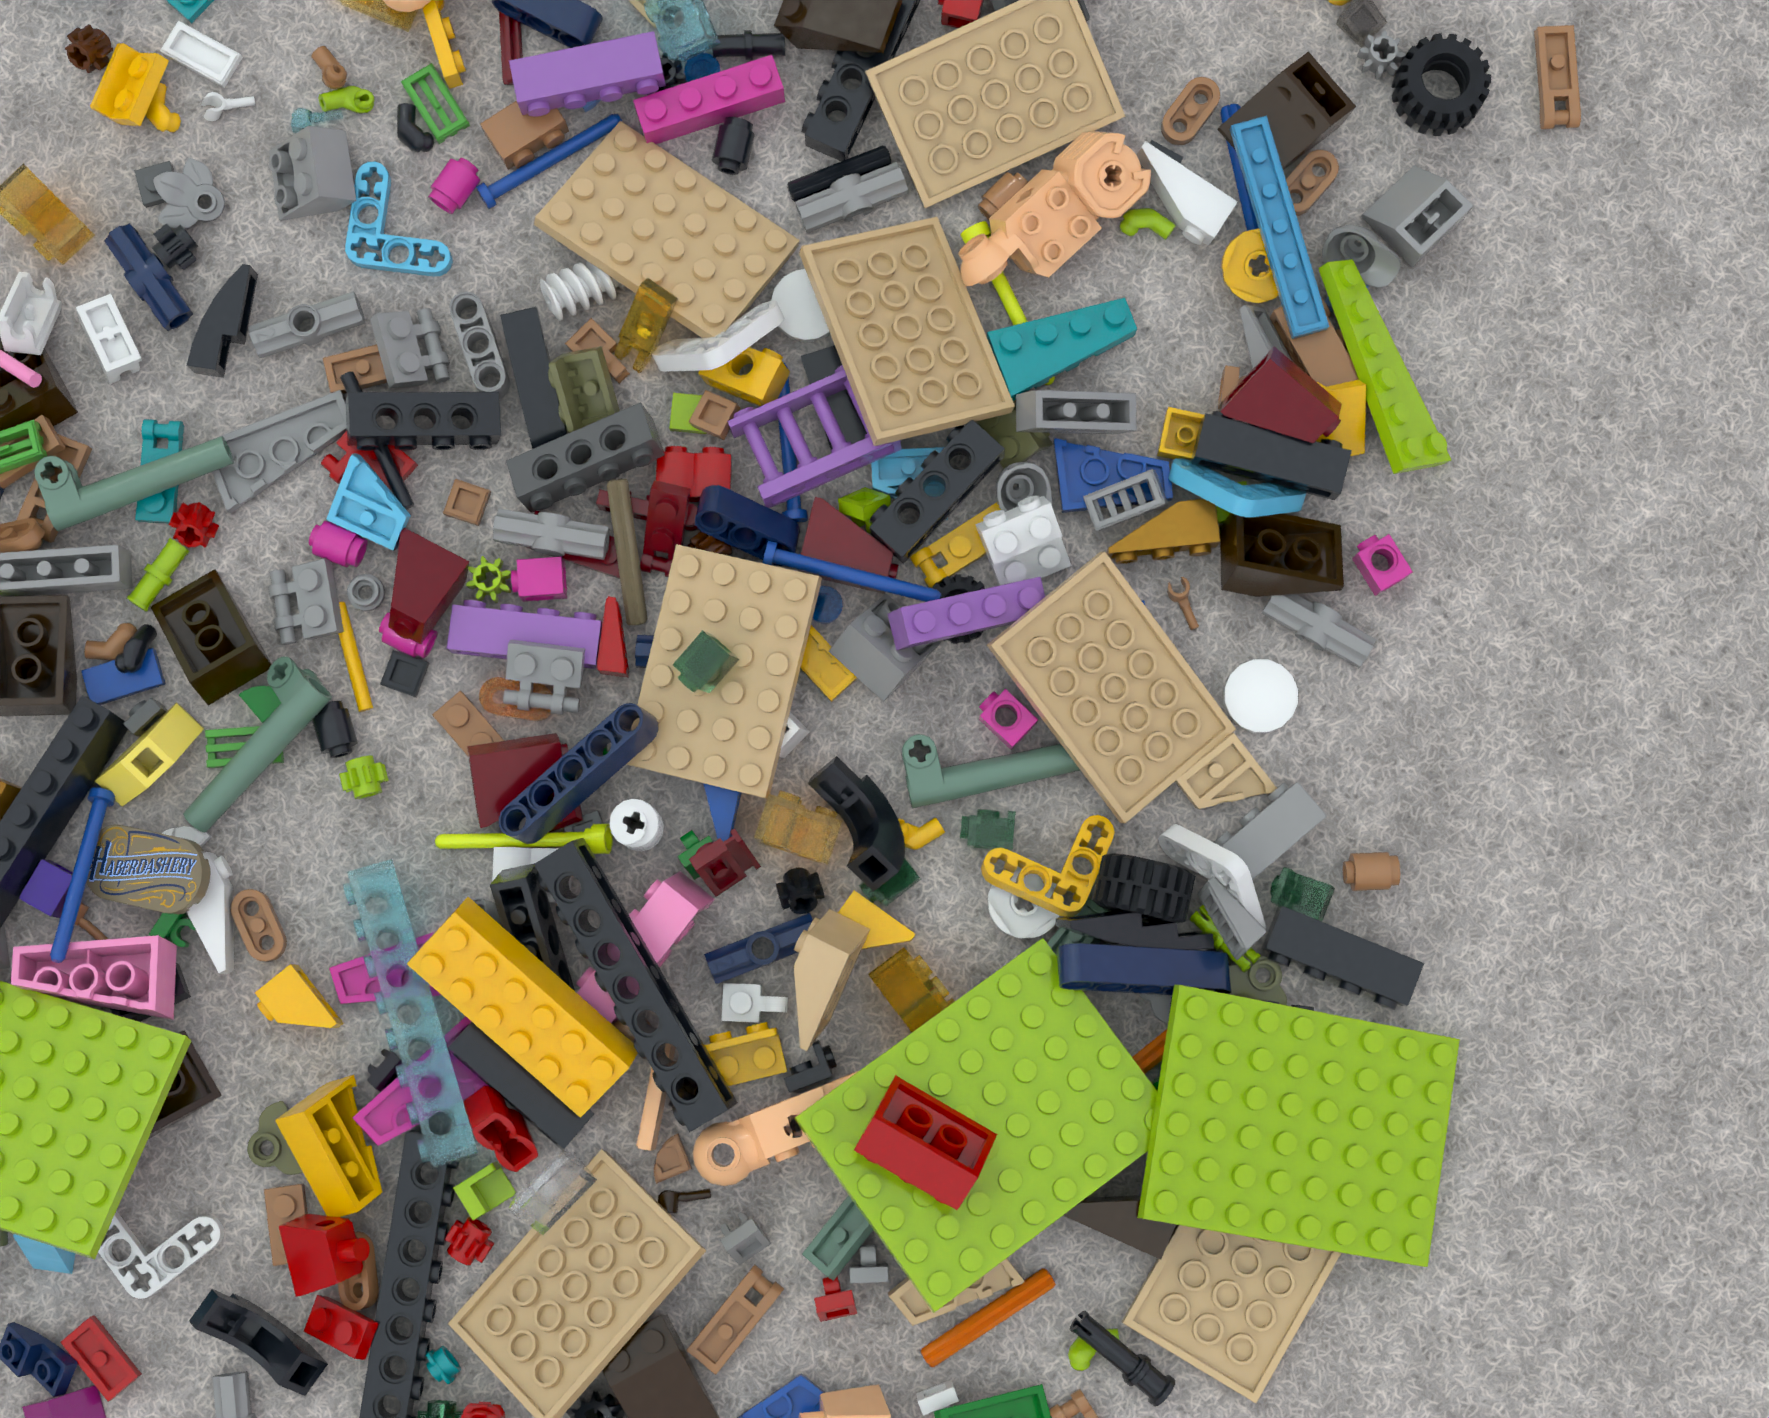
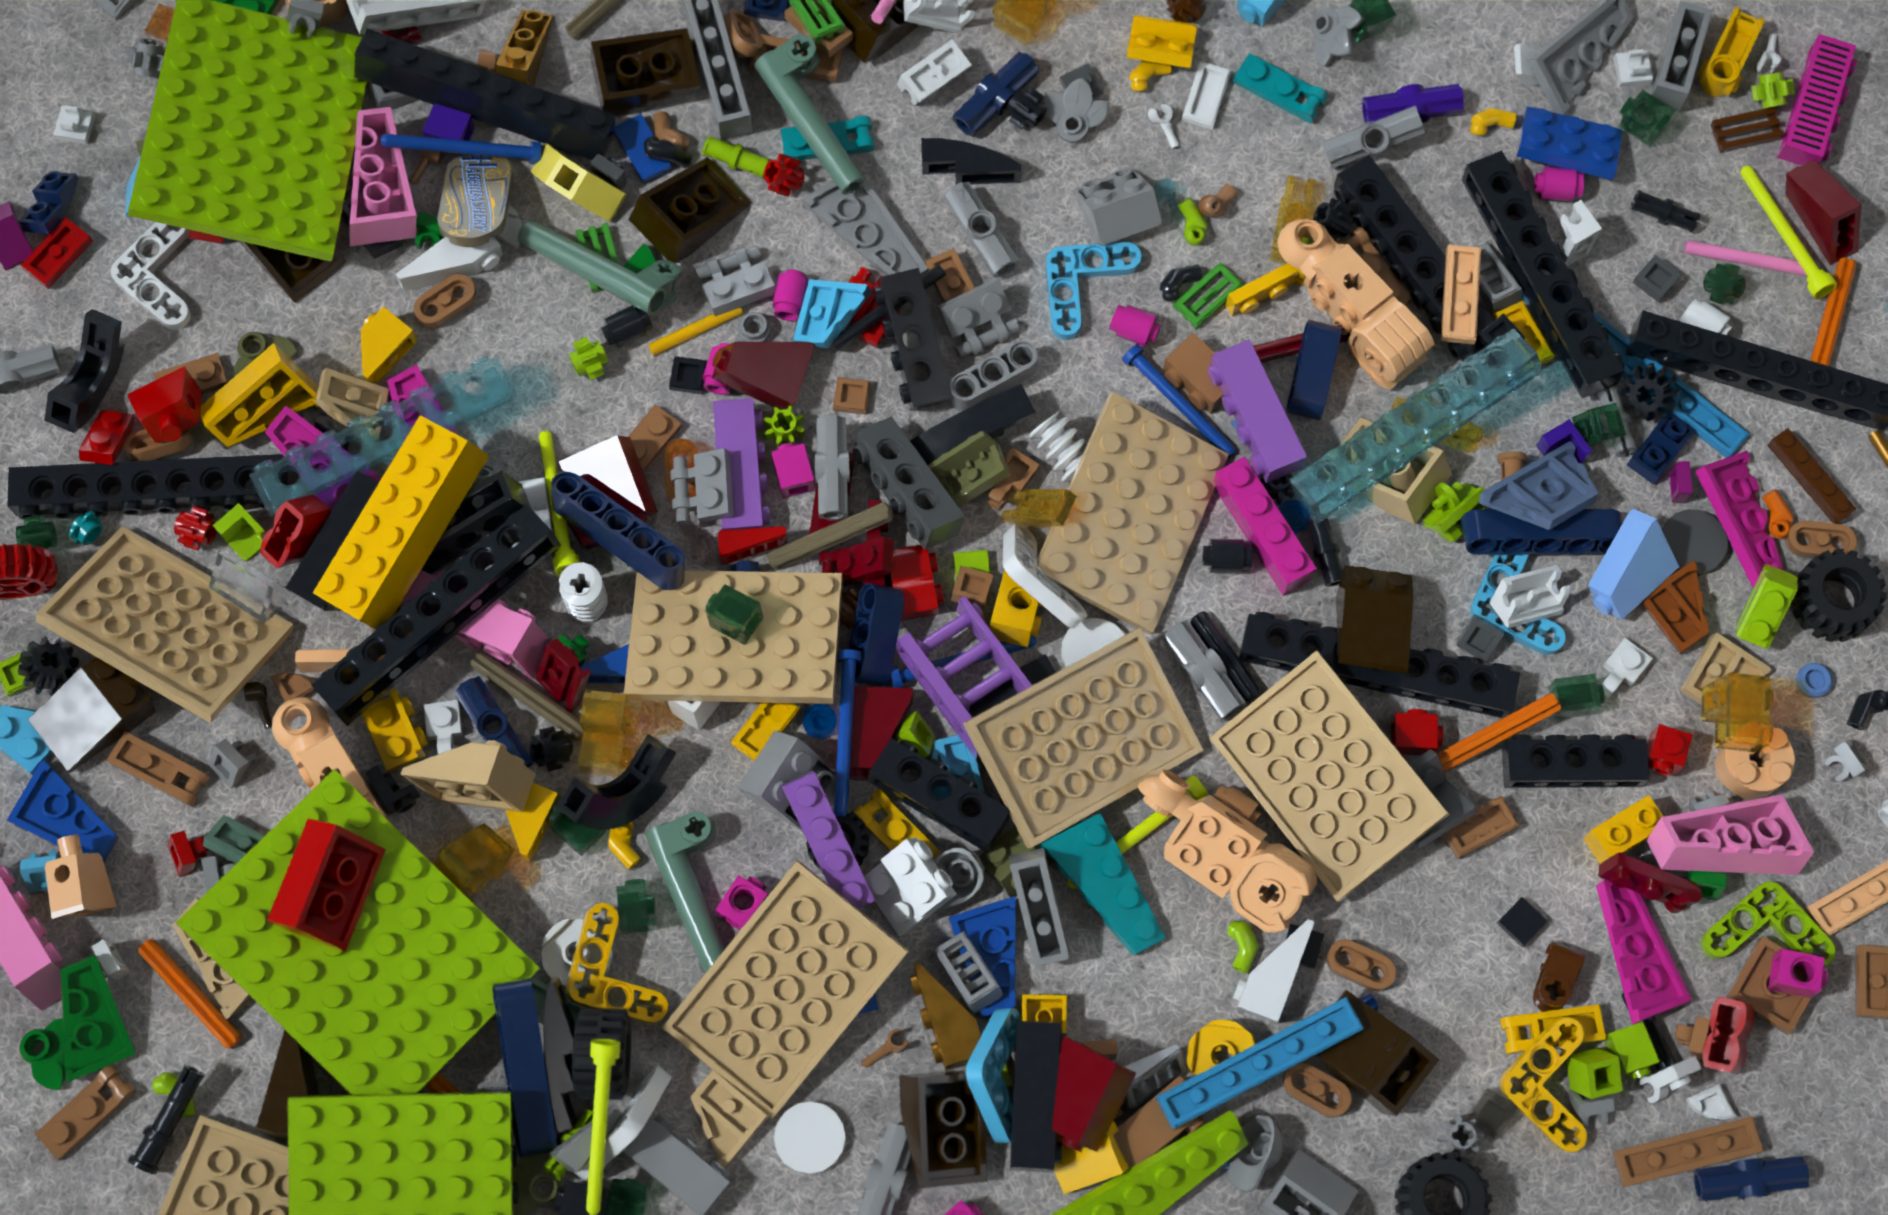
camera: 75 degrees right, 10 degrees down
(356, 1046) = (349, 397): none -> tan wing
(733, 906) = (527, 694): none -> dark tan axle
(1159, 878) = (605, 1055): none -> neon yellow piece

